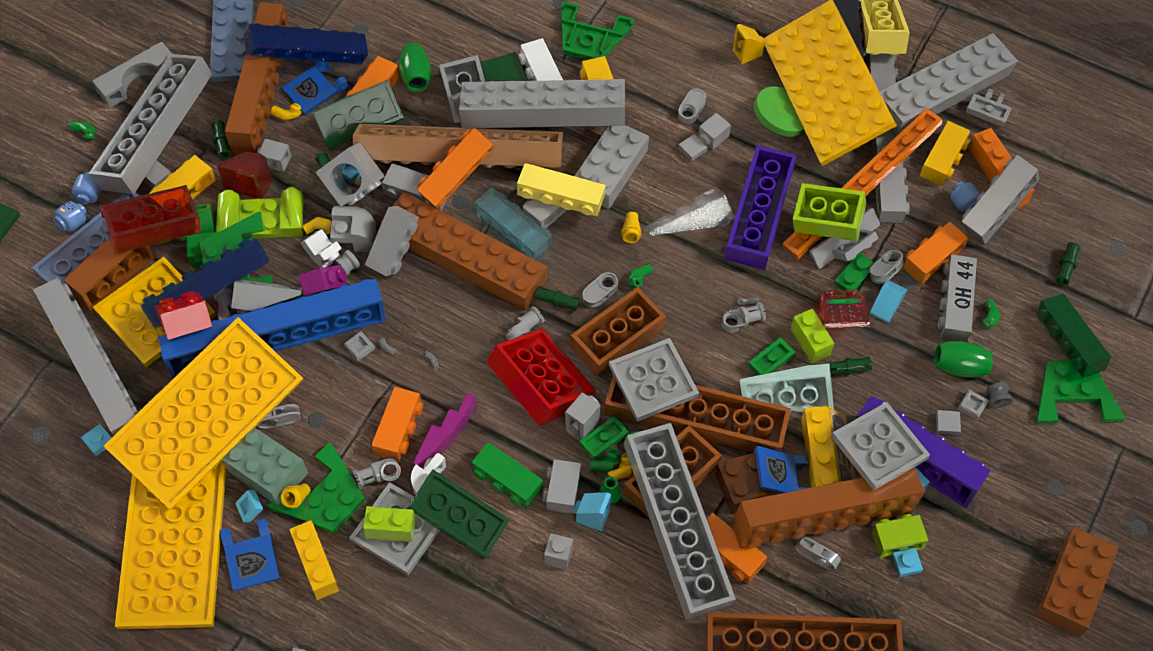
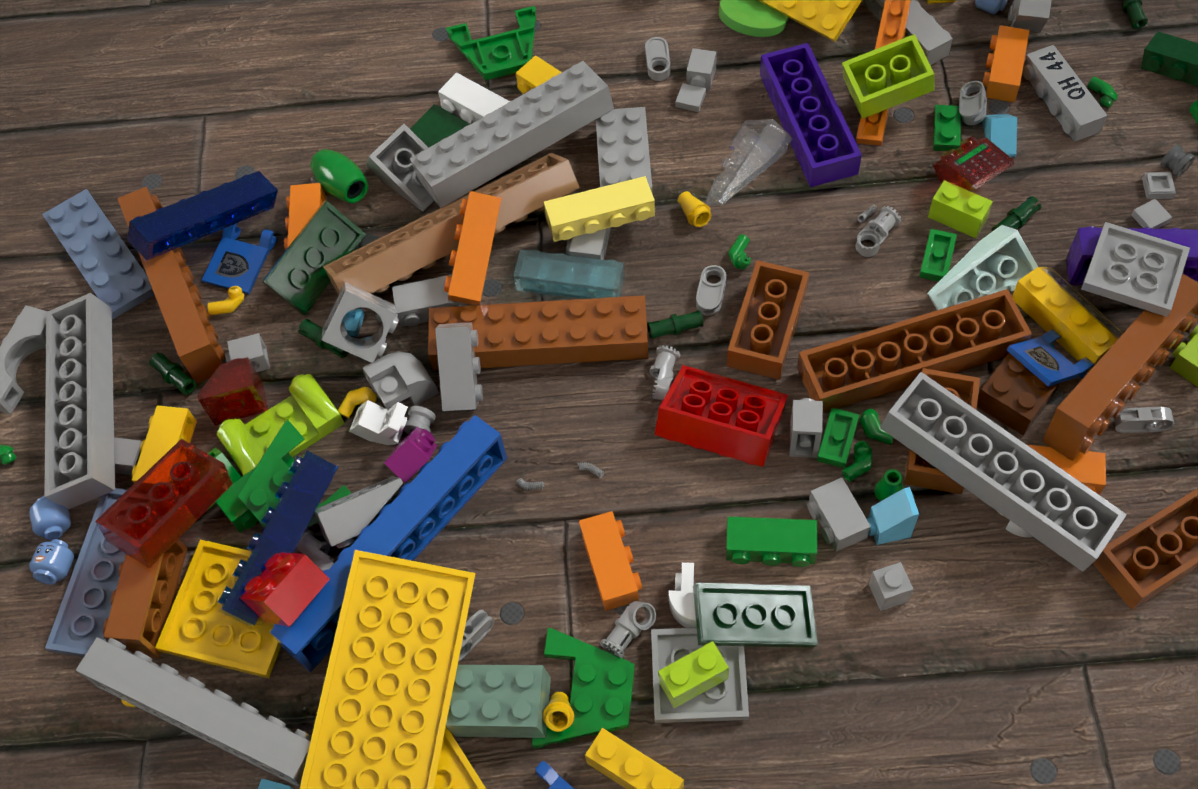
camera: 25 degrees left, 0 degrees up
(249, 505) = (512, 759): medium azure plate -> none
(359, 346) = (499, 502): light grey tile -> none
(441, 438) = (667, 544): magenta slope -> none
(624, 469) = (883, 455): yellow arm -> none
(653, 379) = (853, 342): light grey plate -> none
(847, 249) = (917, 110): light grey bracket -> none
(963, 359) = (1119, 146): green piece -> none

